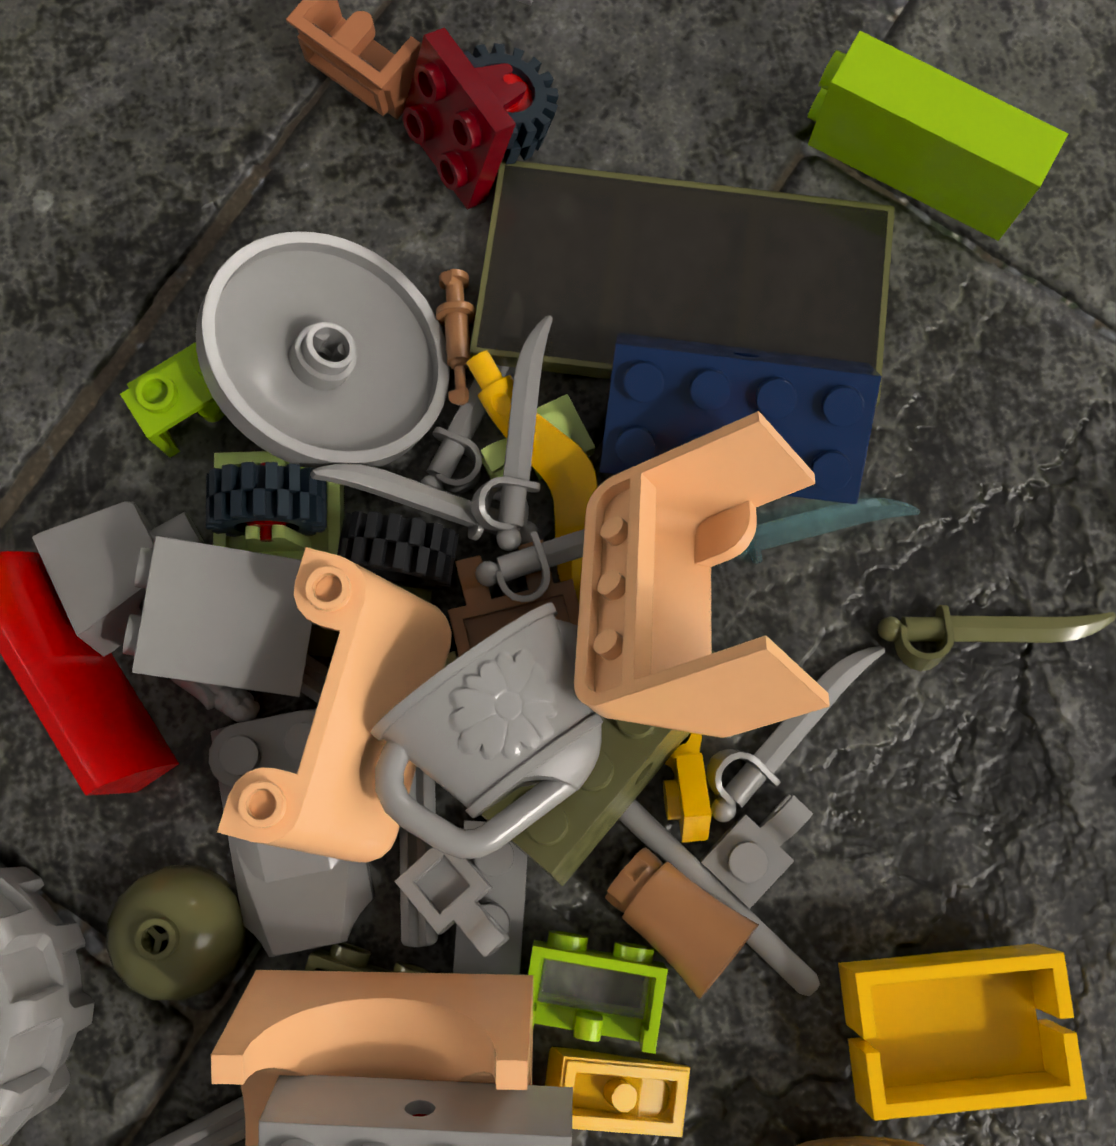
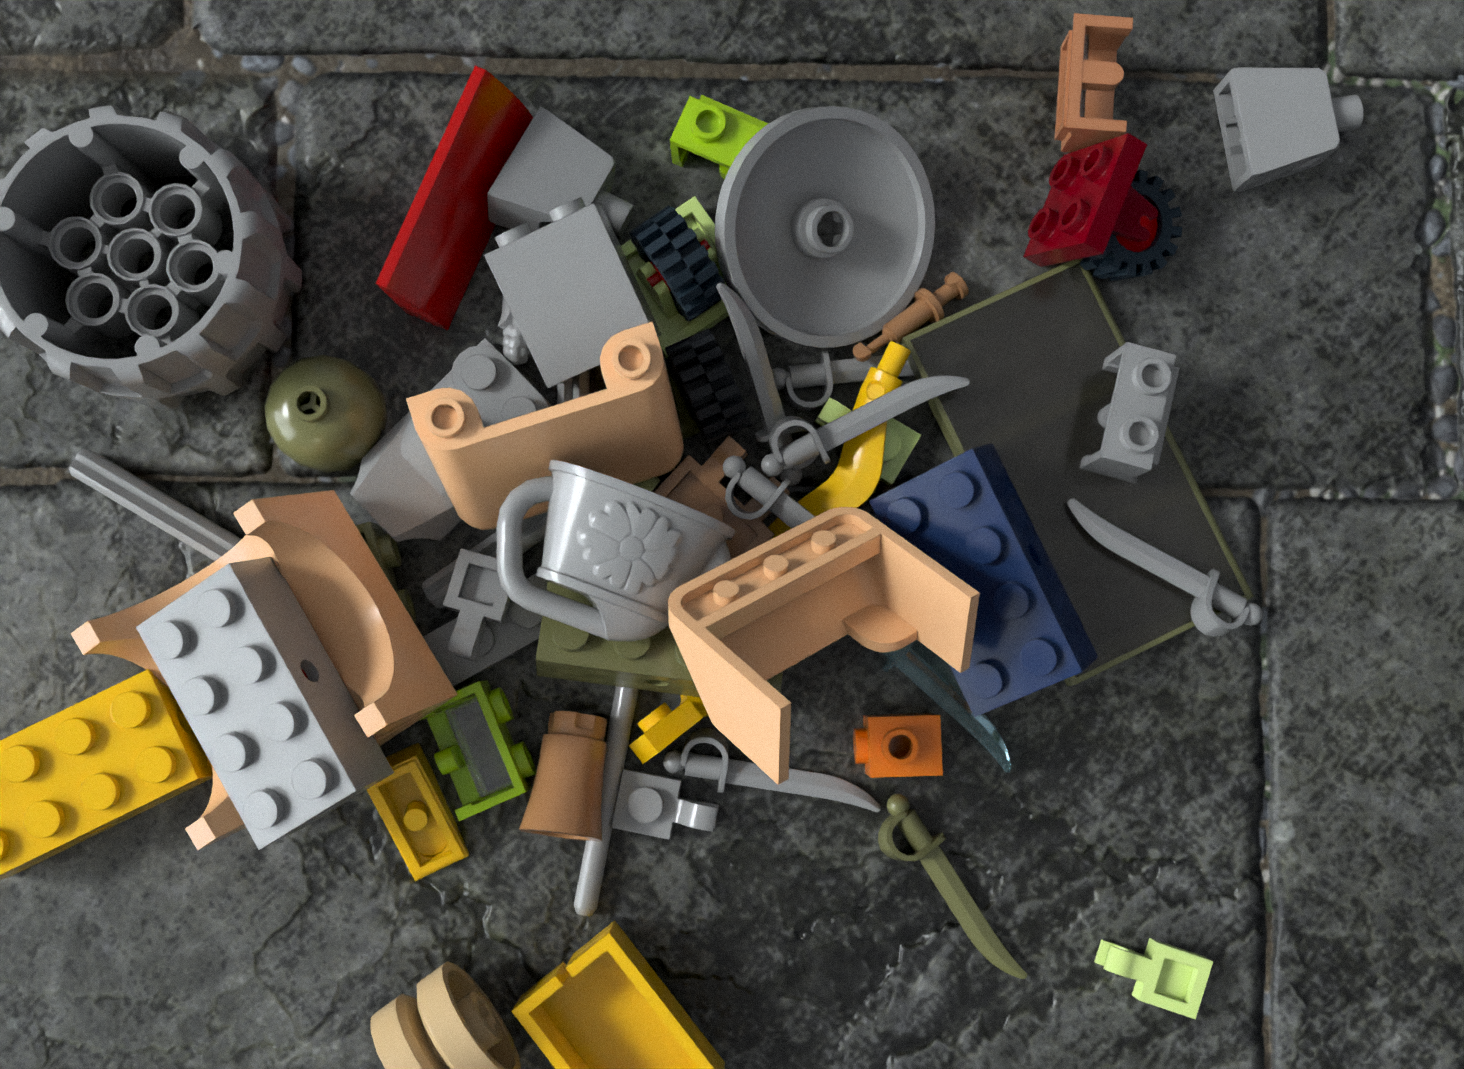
camera: 55 degrees right, 5 degrees up
(676, 189) = (1137, 413): none -> light grey window
(838, 590) = (899, 745): none -> orange brick
(870, 237) = (1204, 587): none -> light grey sword
(931, 135) = (1326, 589): lime brick -> none

